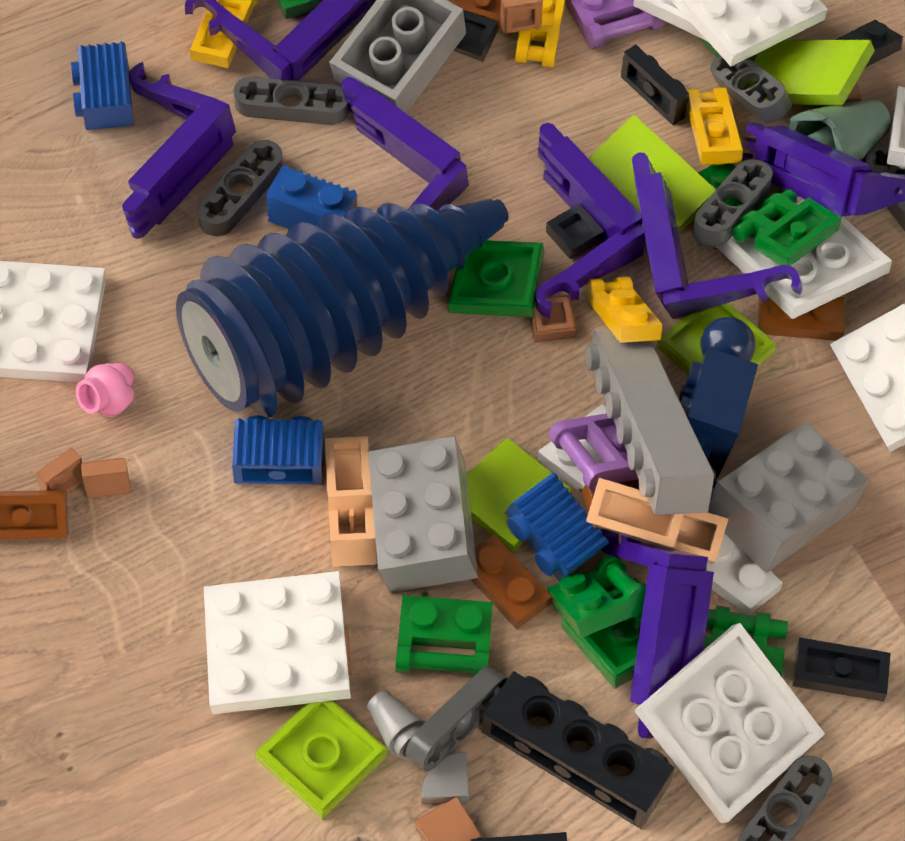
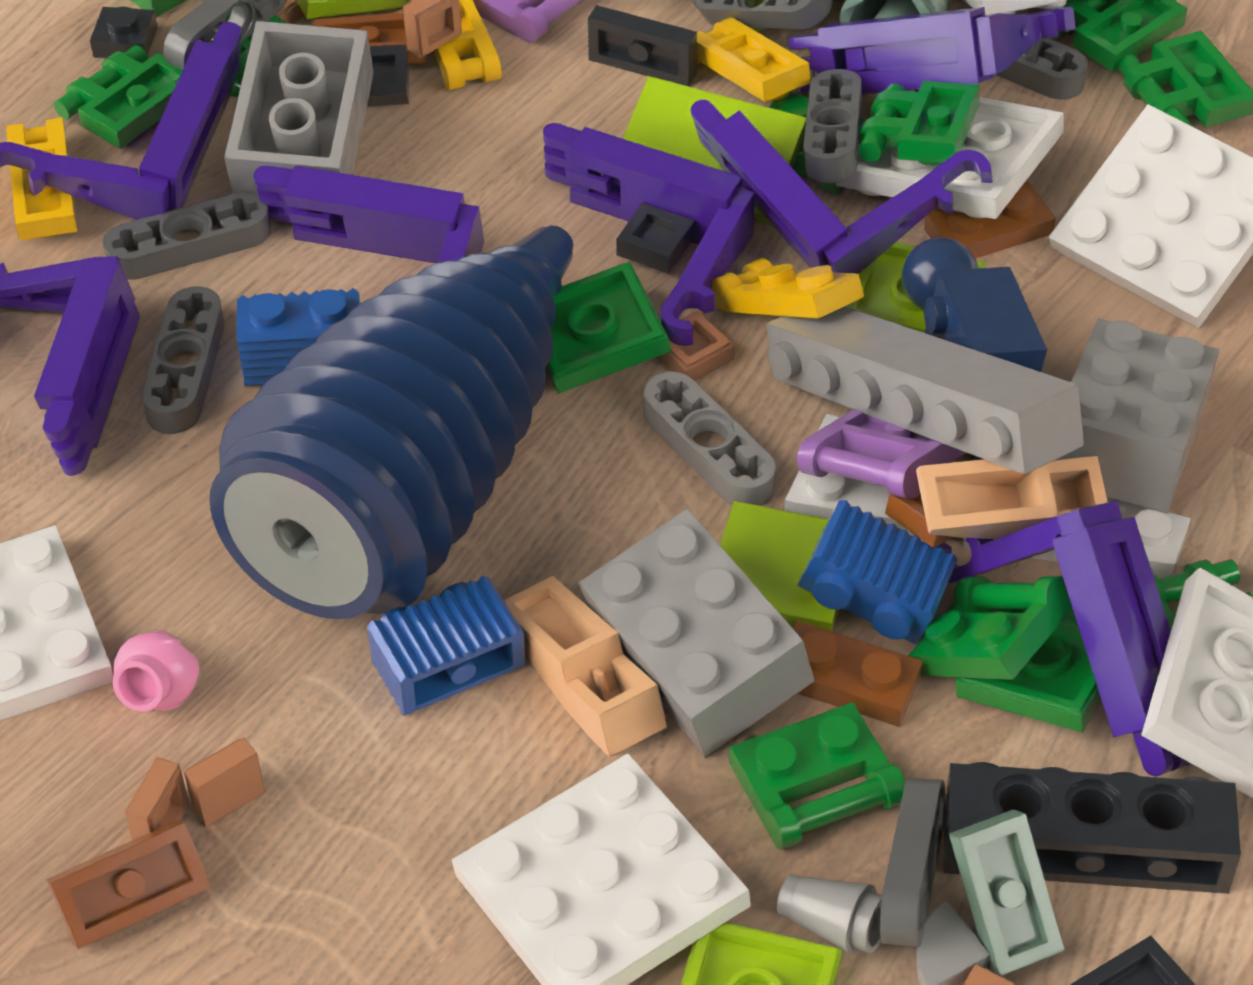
camera: 25 degrees left, 10 degrees down
(495, 764) = (1007, 891): none -> plate
(512, 402) = (703, 415): none -> light grey beam

